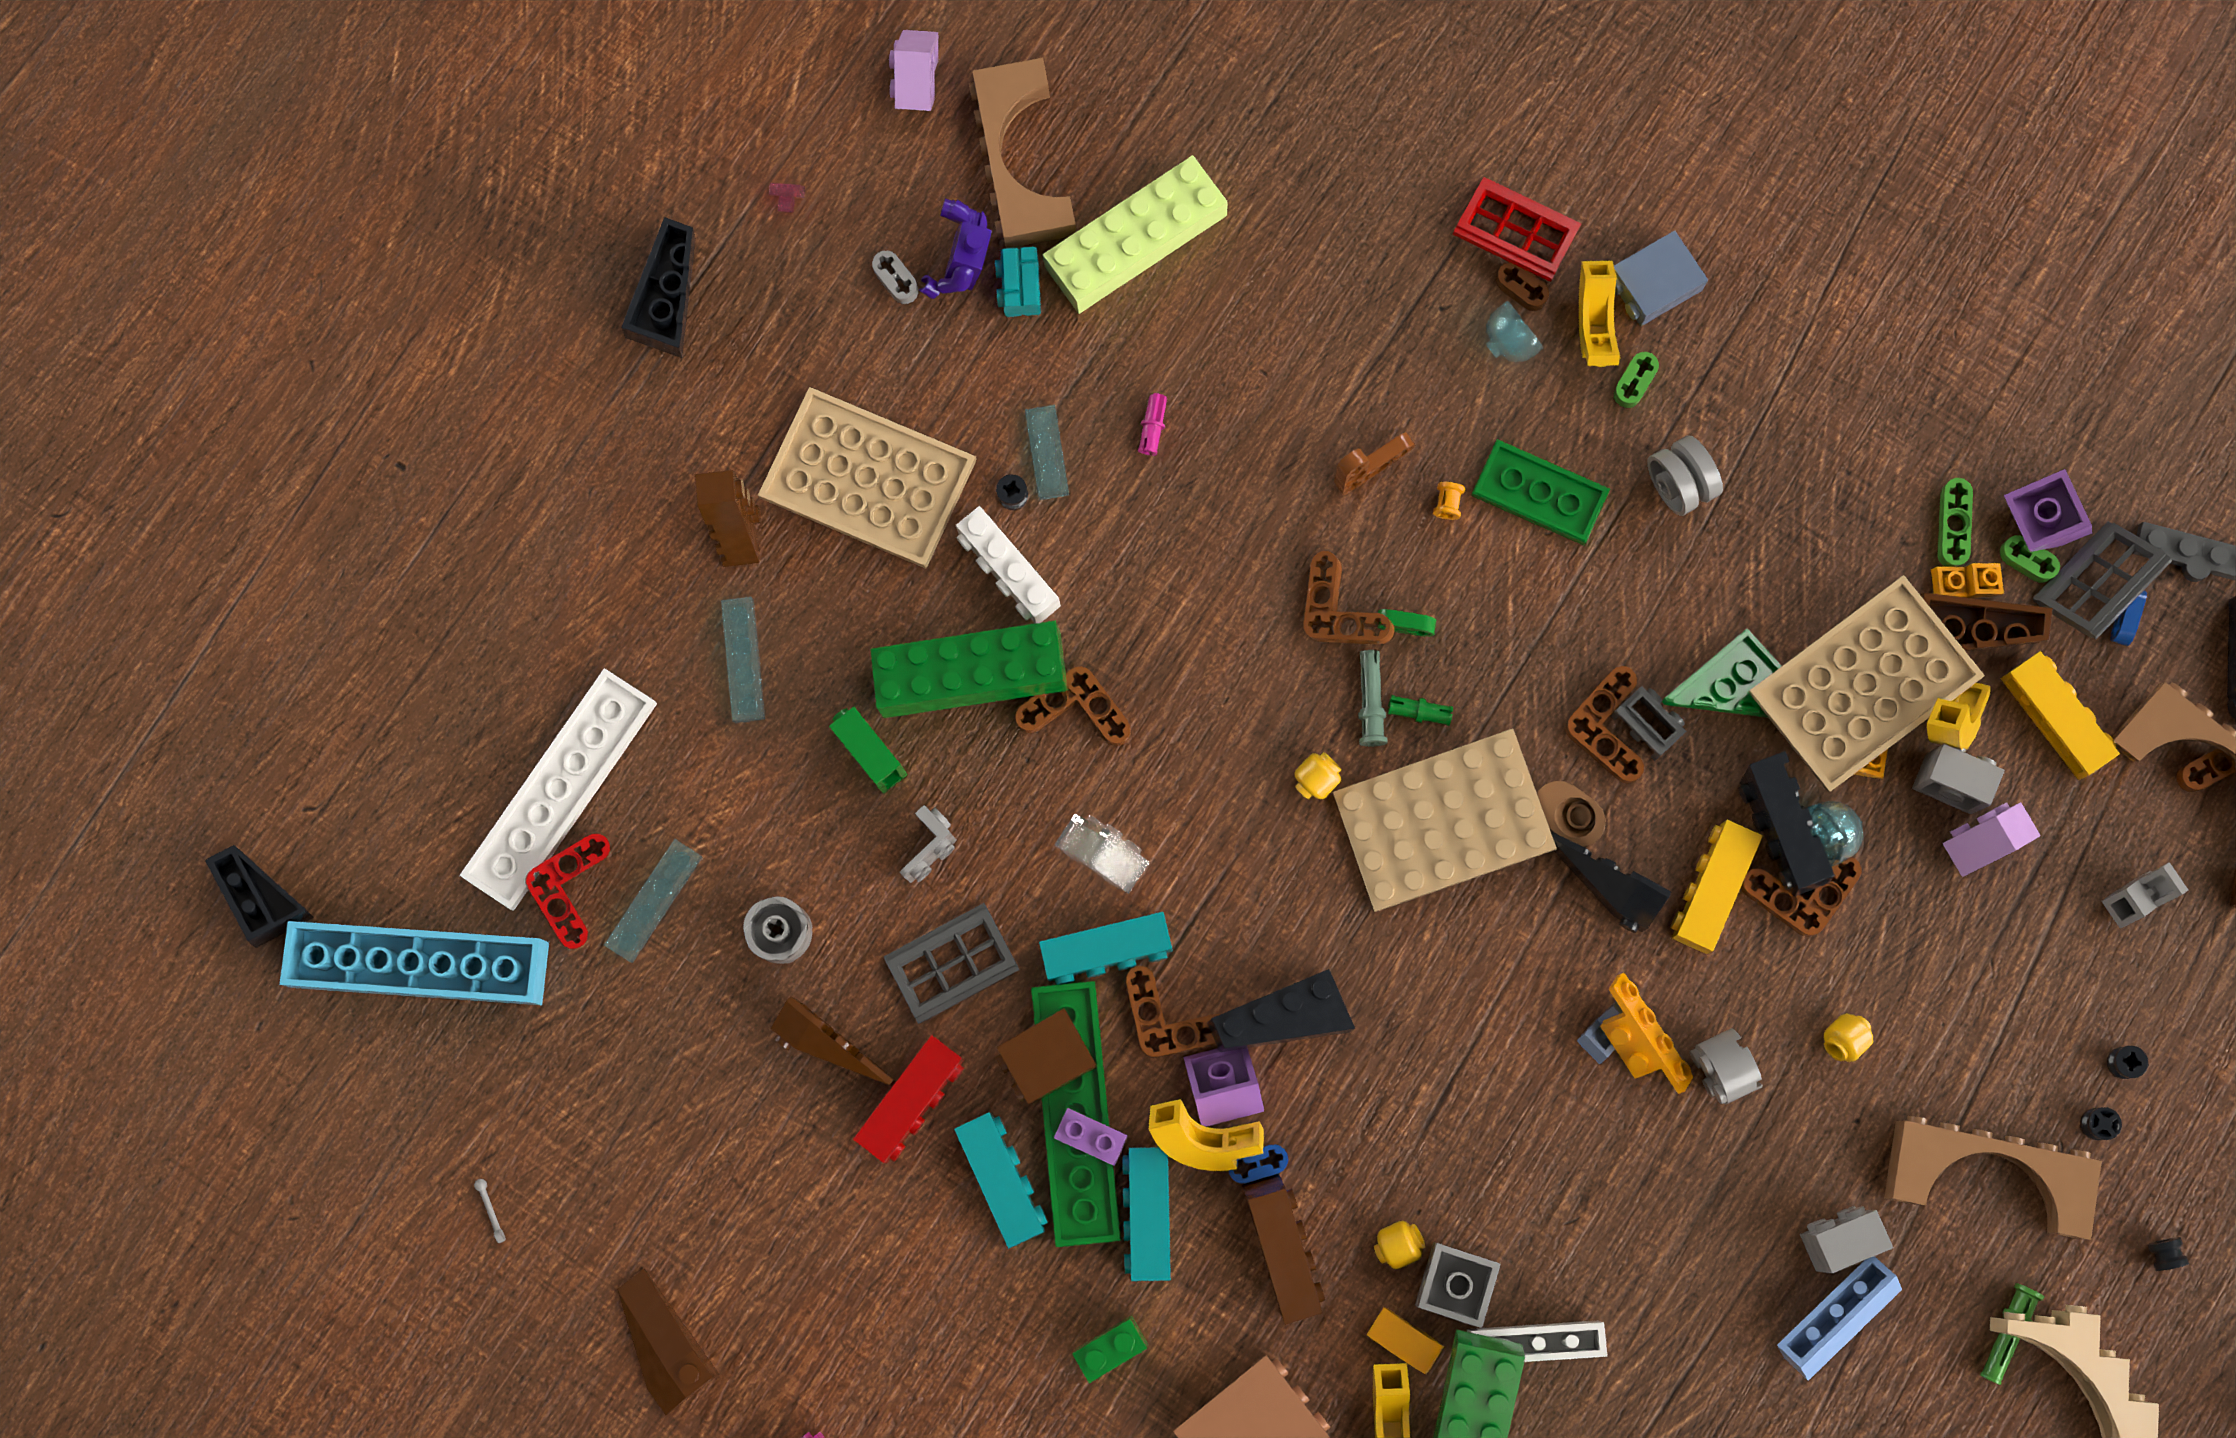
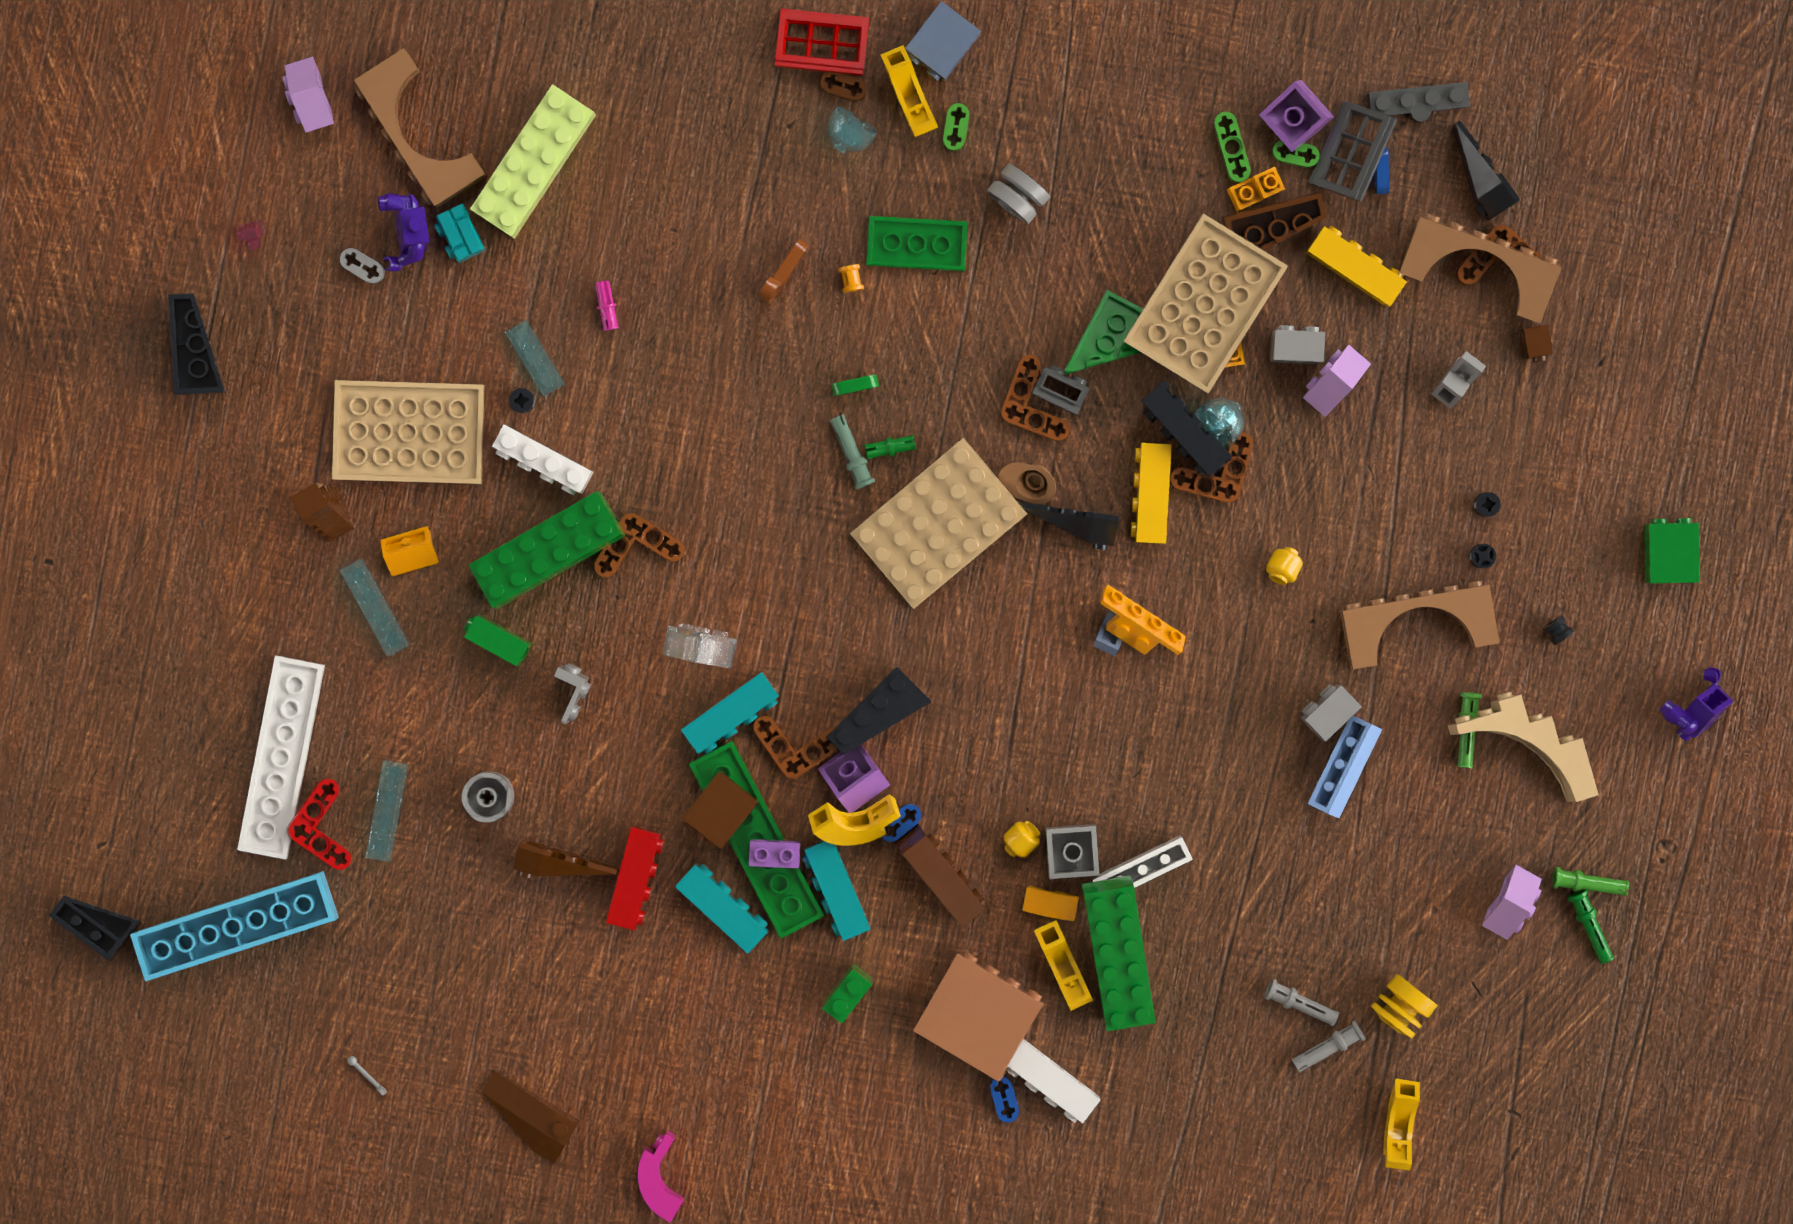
camera: 30 degrees left, 10 degrees up
(809, 612) = (409, 551): none -> light orange panel
(965, 988) = (605, 754): dark grey piece -> none
(1317, 776) = (834, 526): yellow head -> none
(1328, 611) = (794, 399): dark orange beam -> none
(1727, 1067) = (1206, 622): light grey brick -> none
(1958, 720) = (1284, 305): yellow arch -> none

